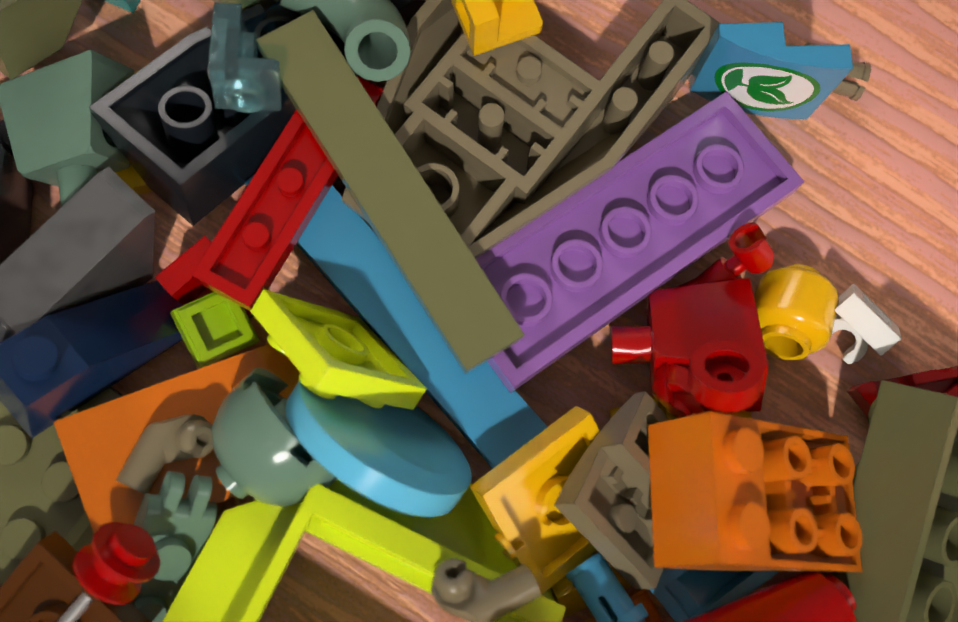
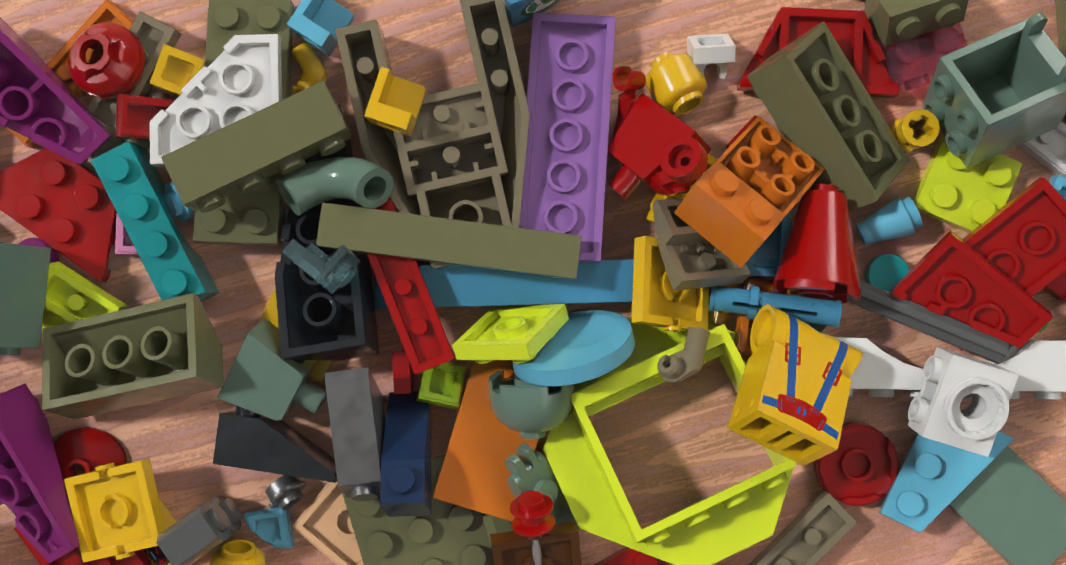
camera: 40 degrees left, 10 degrees up
(165, 443) = (487, 451): dark tan arm -> none

